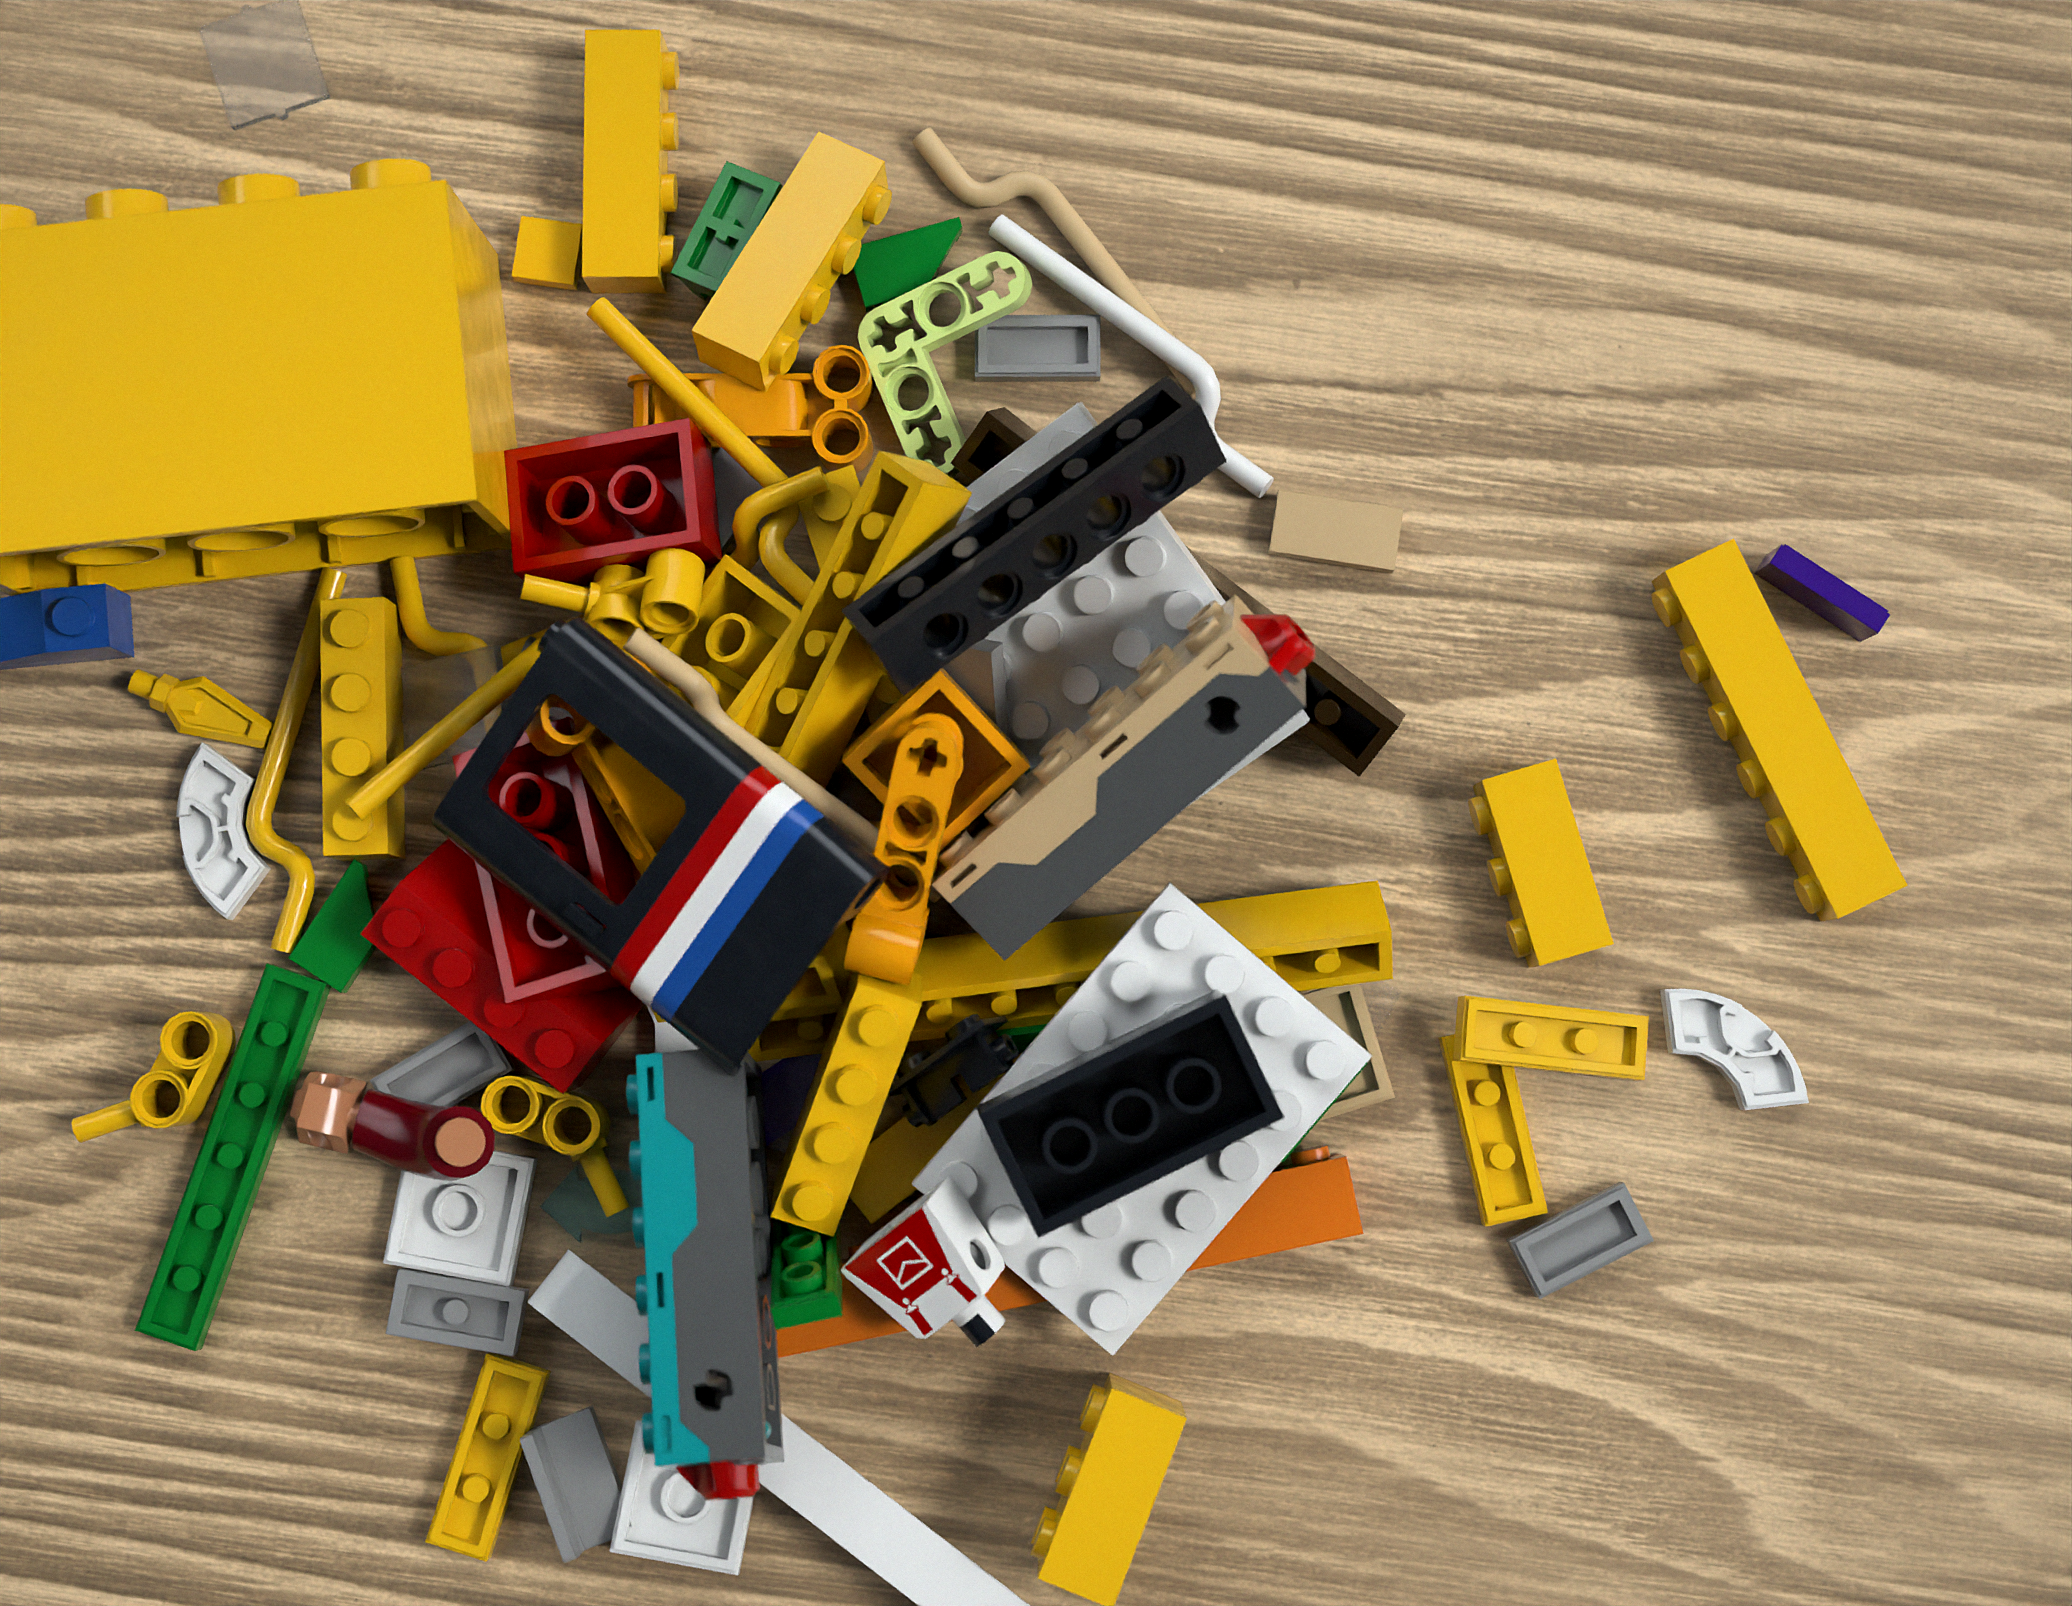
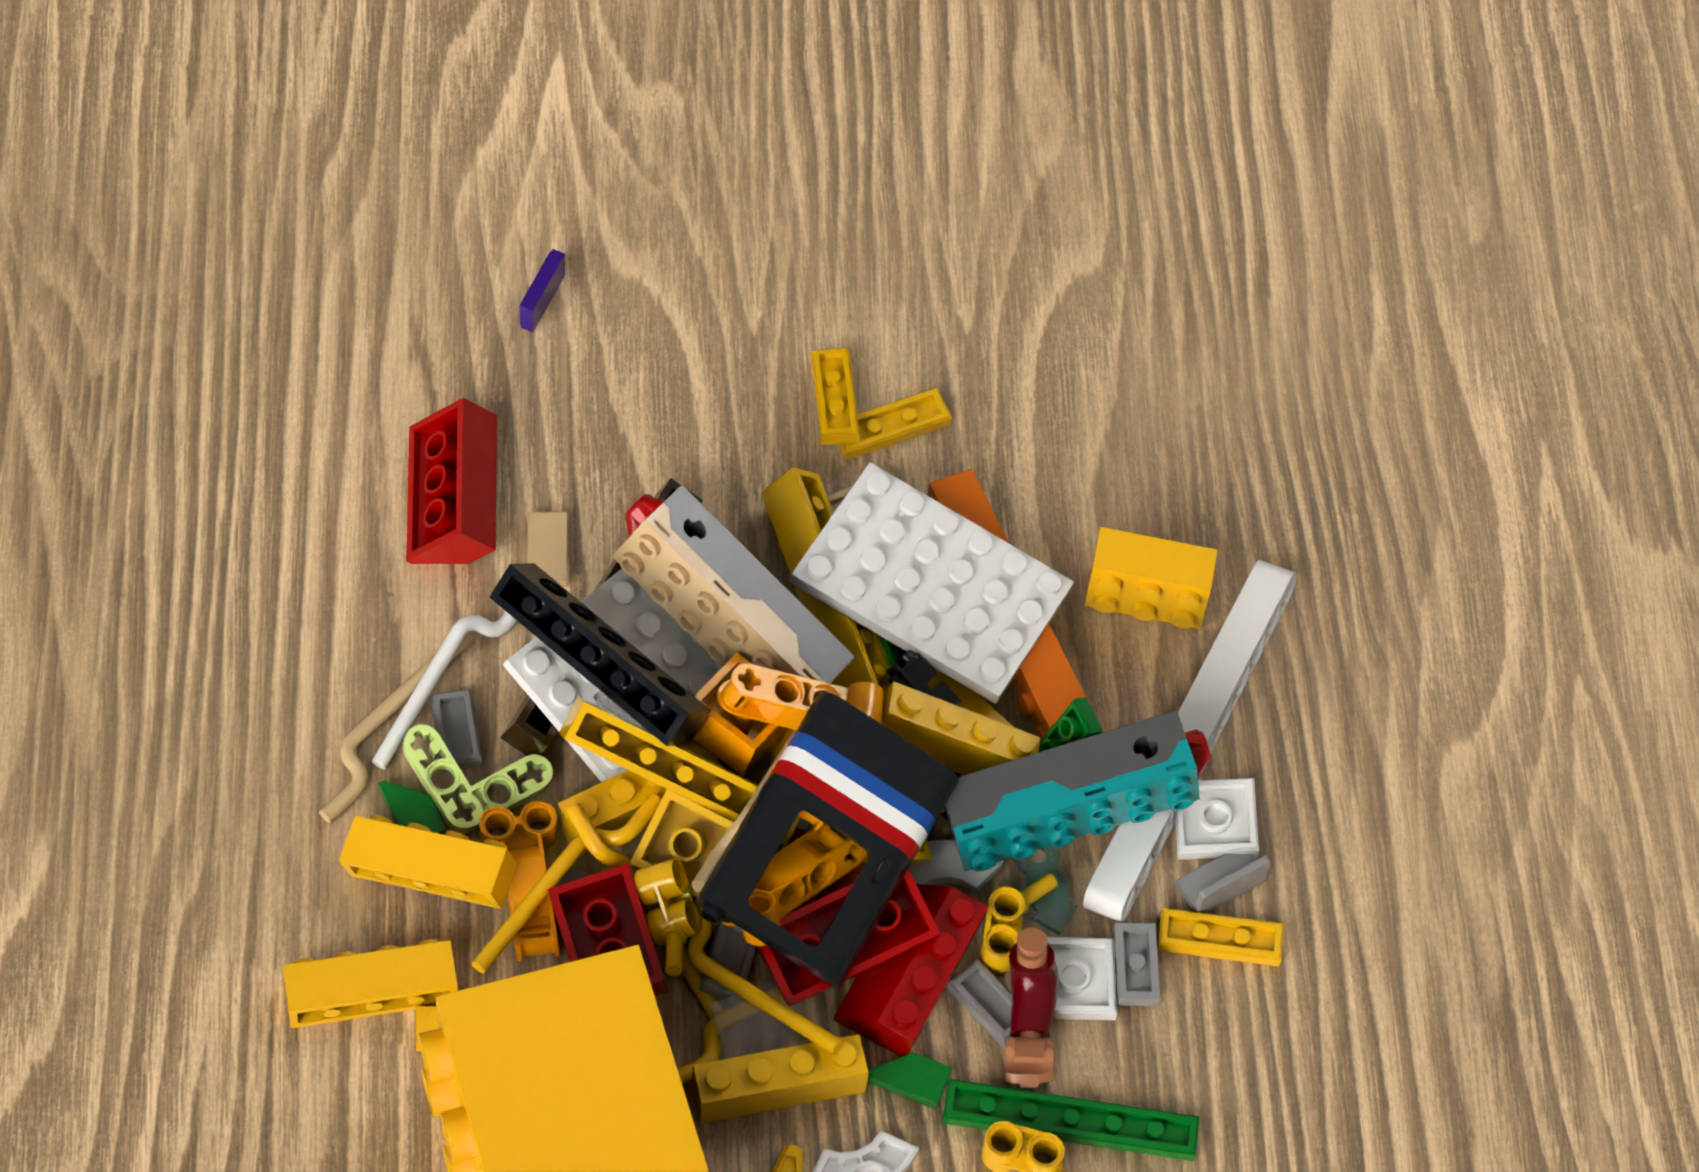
camera: 110 degrees left, 25 degrees down
(274, 769) = (817, 1140): yellow piece -> none
(724, 228) = (414, 906): green hinge -> none
(932, 1267) = (1045, 675): white torso -> none
(1129, 1112) = (932, 566): black brick -> none
(1467, 398) = (452, 485): none -> red slope
(1539, 864) = (732, 412): yellow brick -> none
(1580, 1240) = (948, 372): light grey tile -> none
(1736, 1044) = (818, 307): white tile -> none
(1776, 732) = (628, 304): yellow brick -> none

